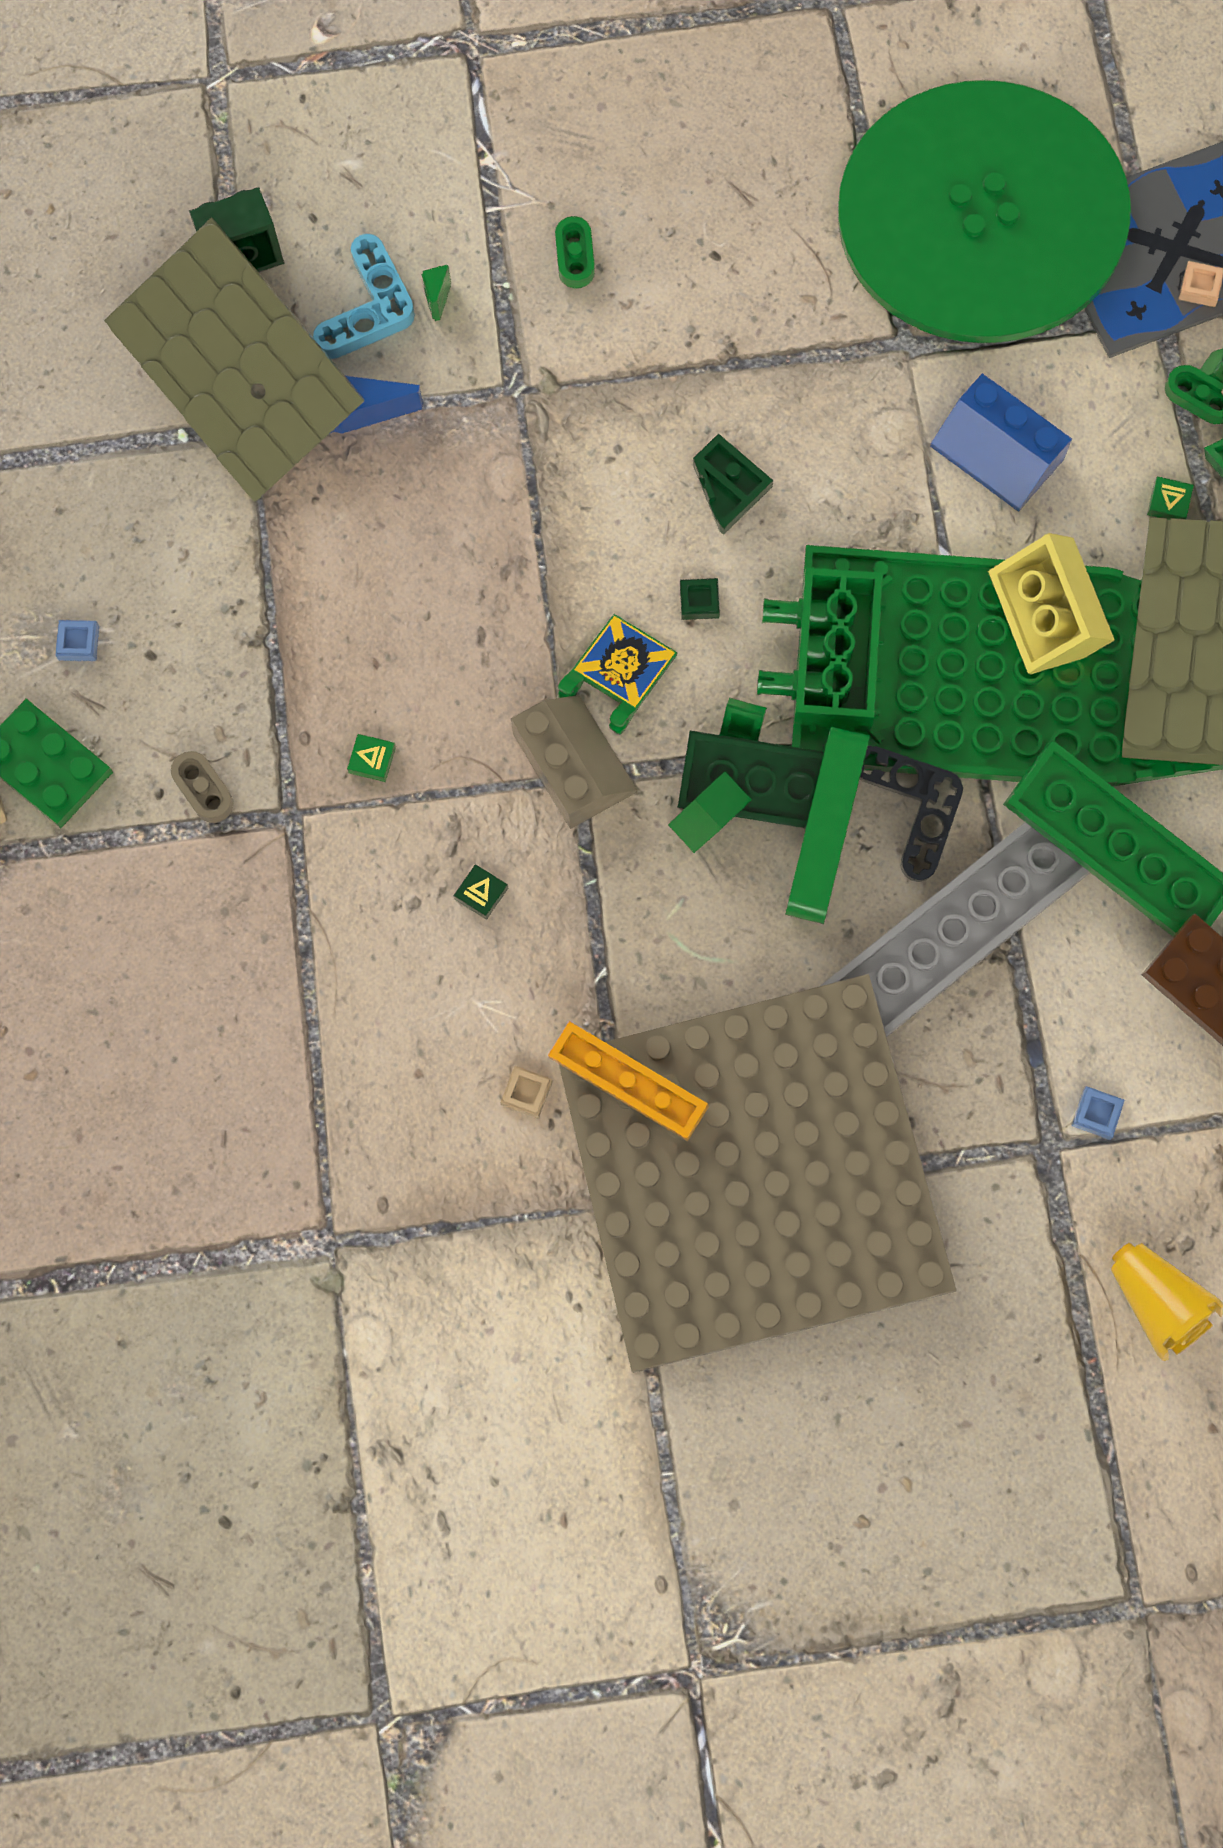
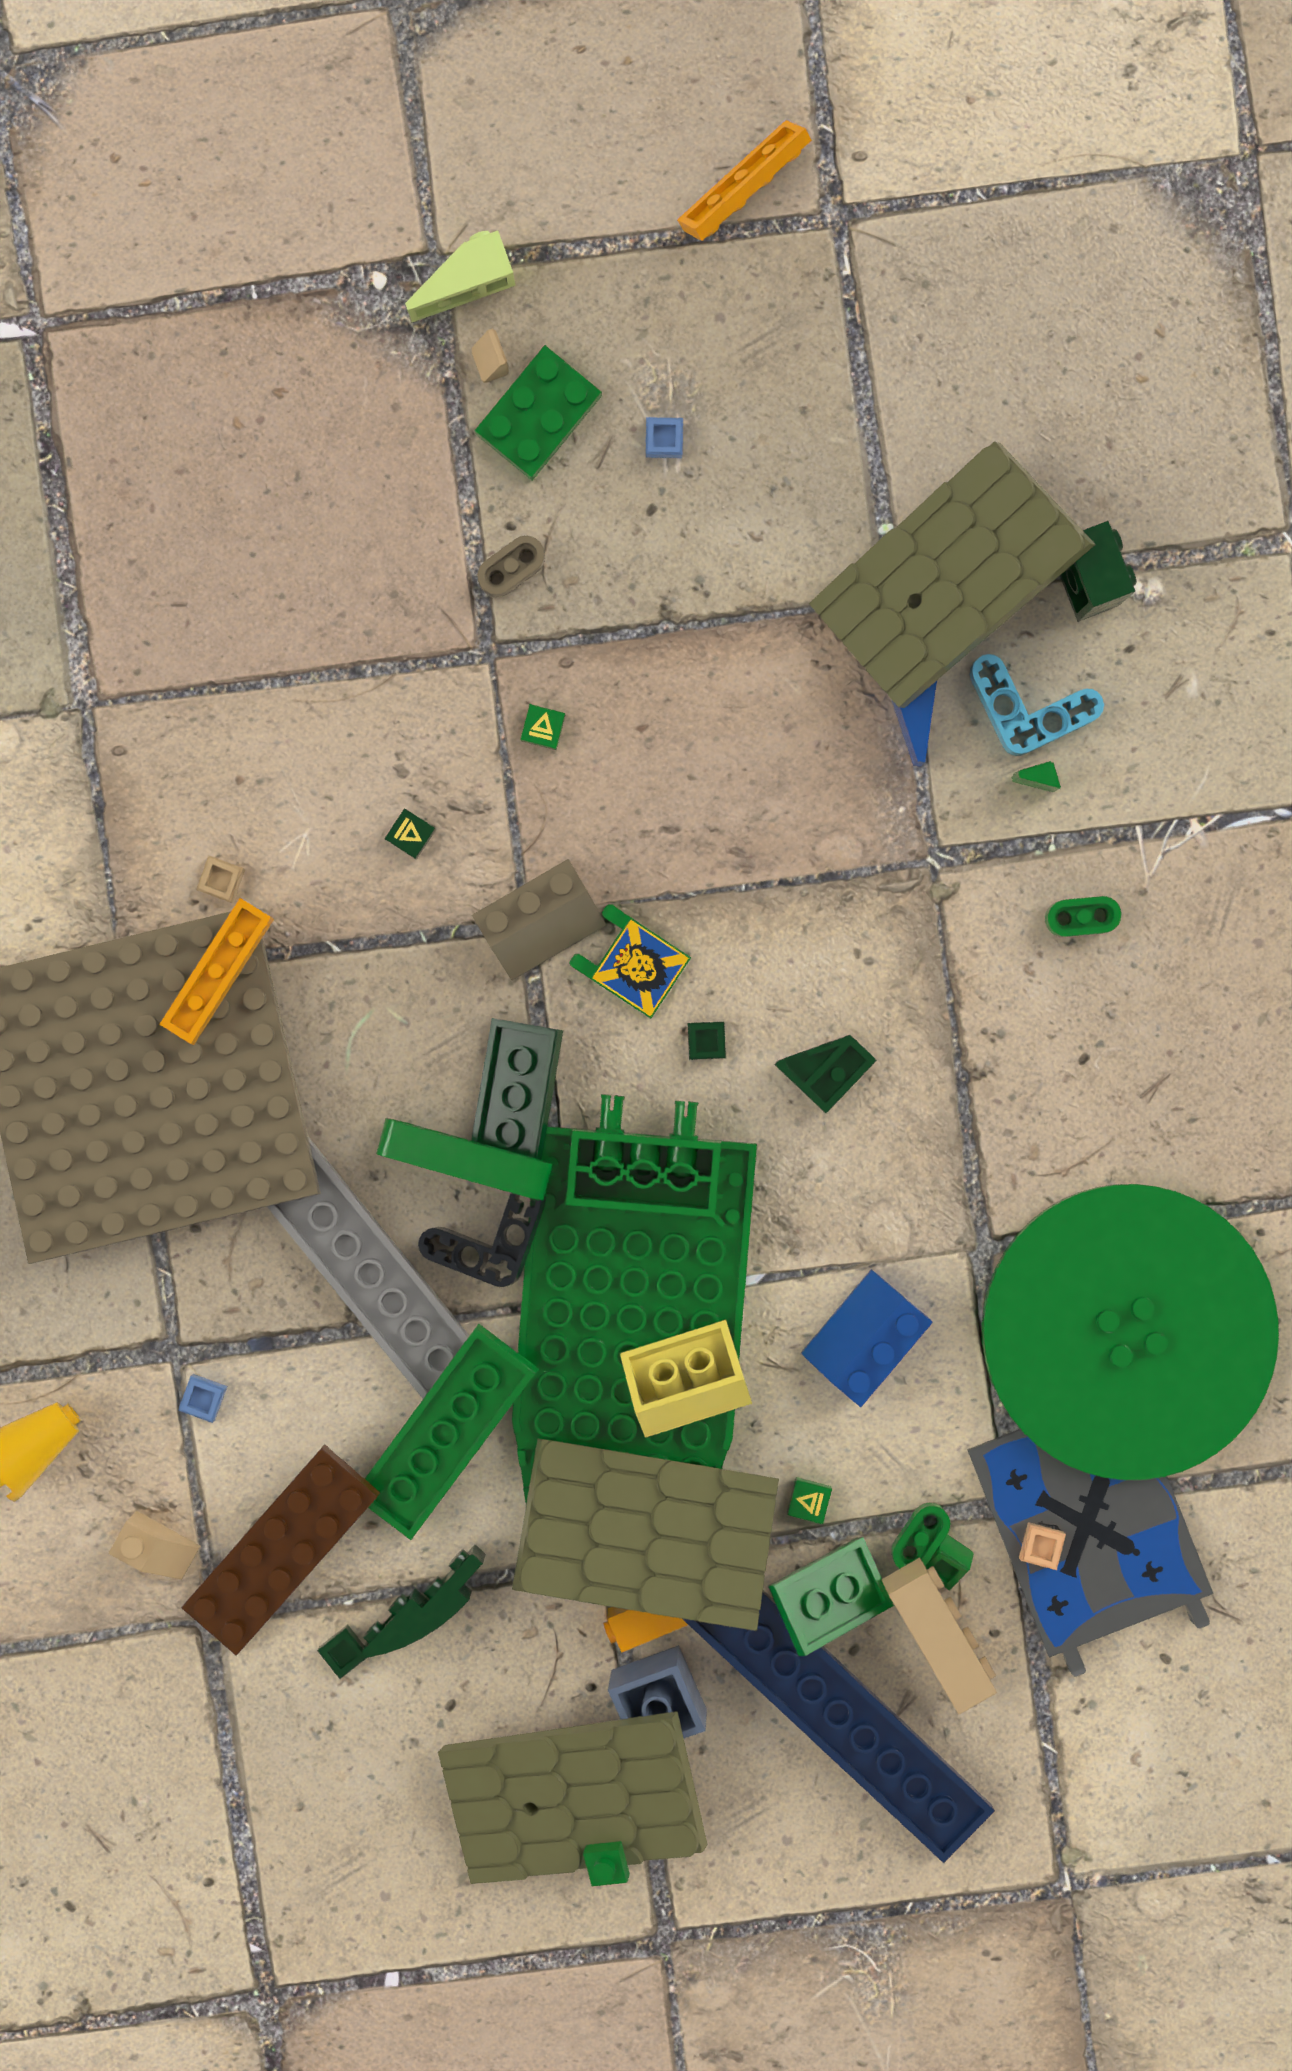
camera: 85 degrees right, 15 degrees up
(709, 812) = (482, 1049): green slope -> none
(742, 720) = (574, 1080): green tile -> none

